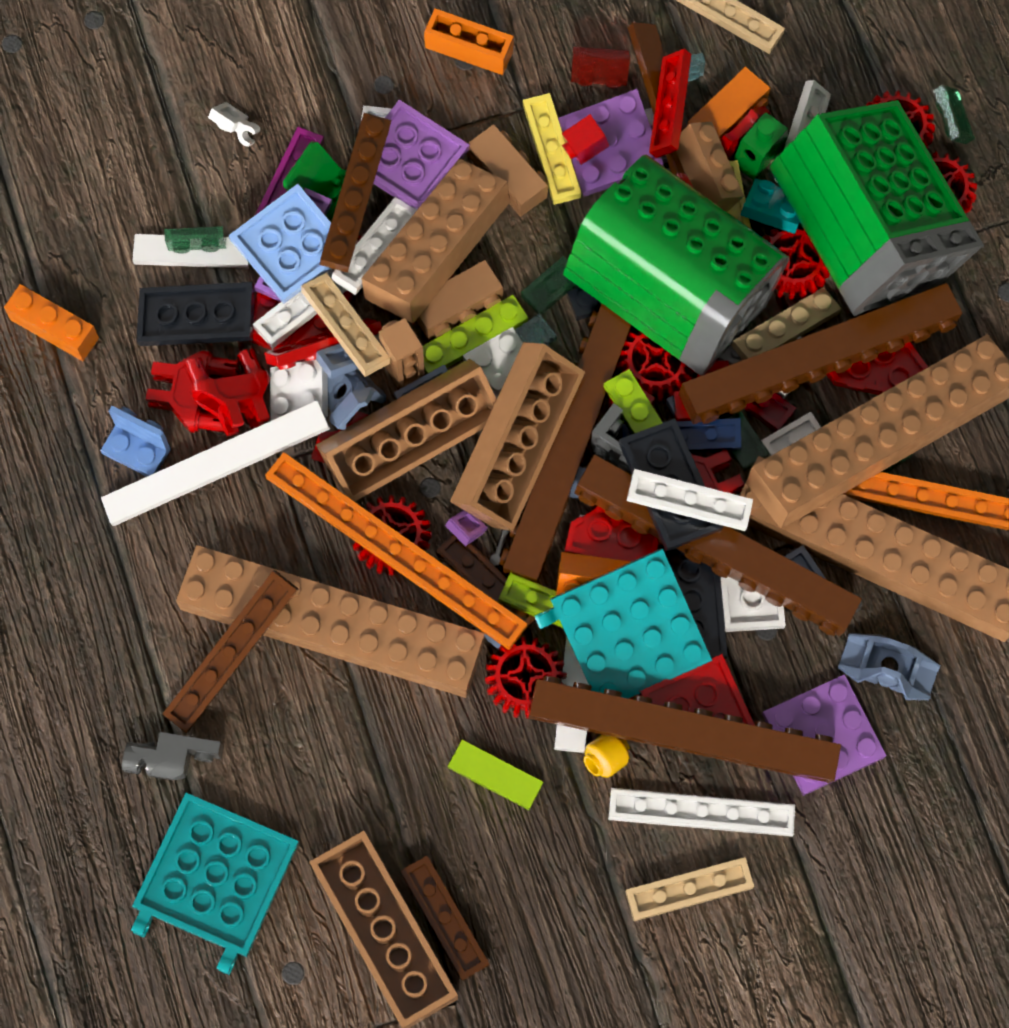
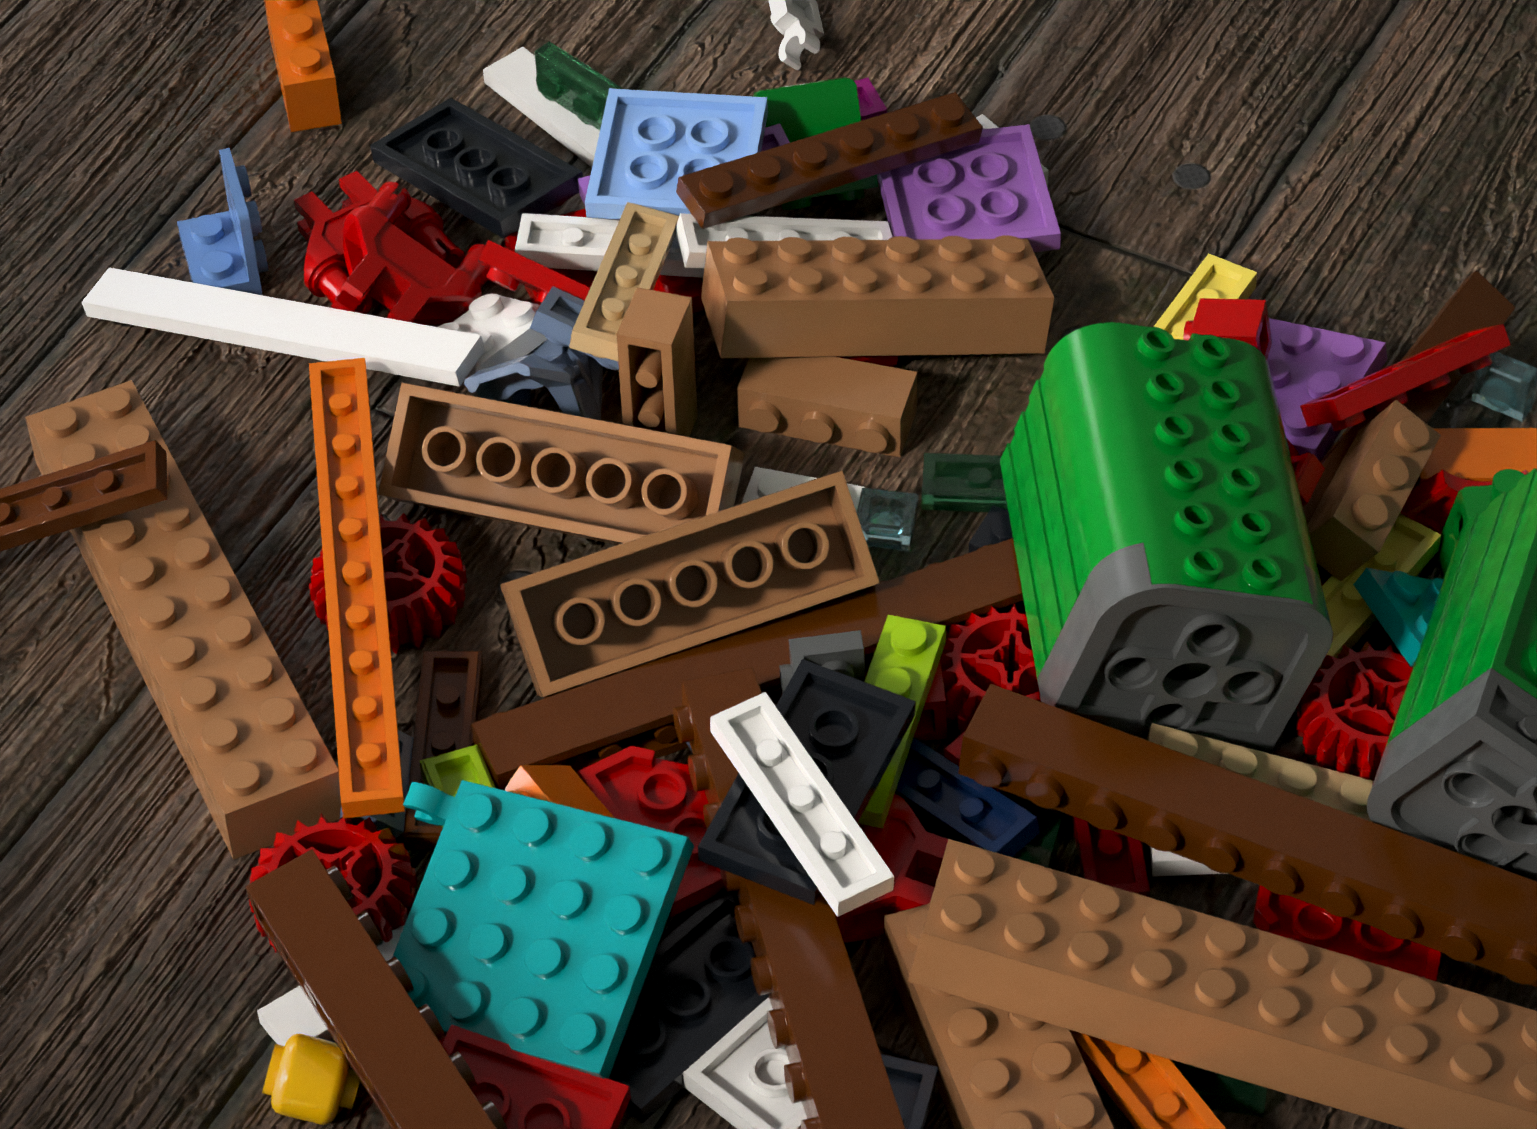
camera: 50 degrees right, 25 degrees down
(466, 527) = (495, 656): medium lavender tile -> none
(468, 41) = (1212, 140): orange brick -> none
(474, 332) = (808, 453): lime plate -> none
(495, 774) = (140, 977): lime tile -> none
(497, 155) = (1090, 285): medium nougat brick -> none
(600, 66) = (1367, 288): clear red bracket -> none

